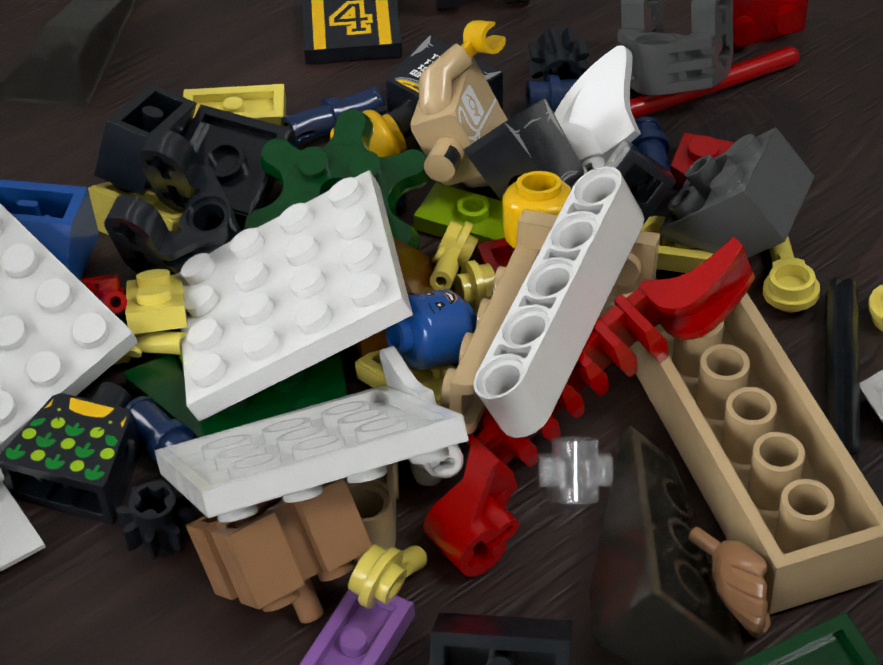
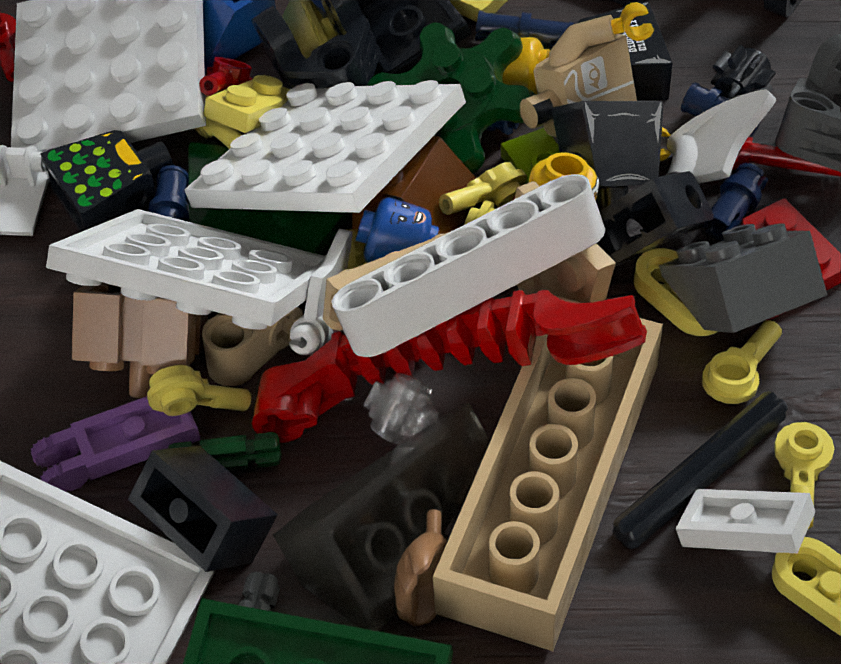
camera: 40 degrees right, 5 degrees up
(483, 584) = (238, 452): none -> dark green axle

